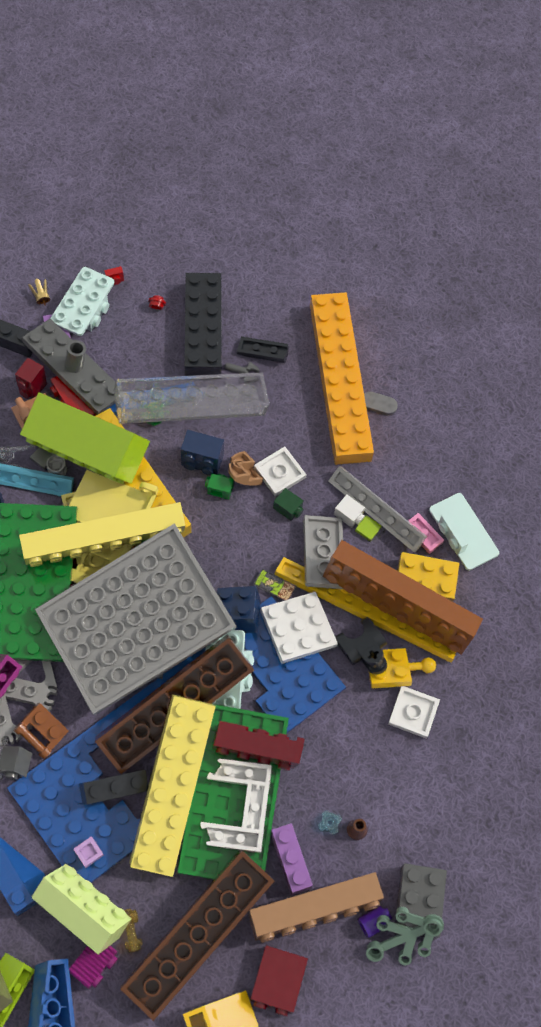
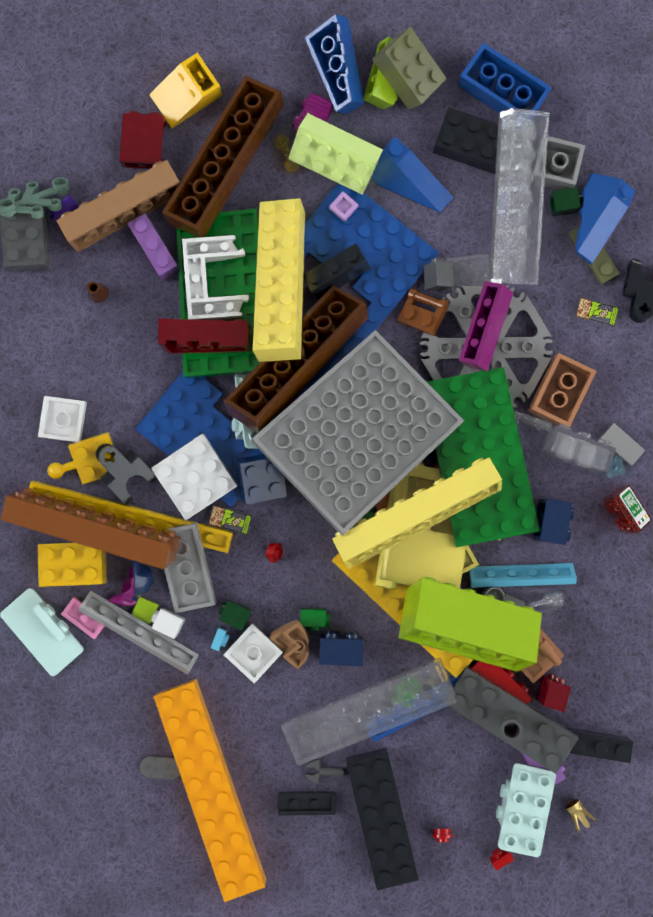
camera: 175 degrees right, 20 degrees up
(241, 548) = (274, 552): none -> red plate
(306, 488) = (220, 639): none -> medium azure plate
(335, 819) = (121, 288): clear light blue plate -> none
(377, 545) = (136, 584): none -> hair

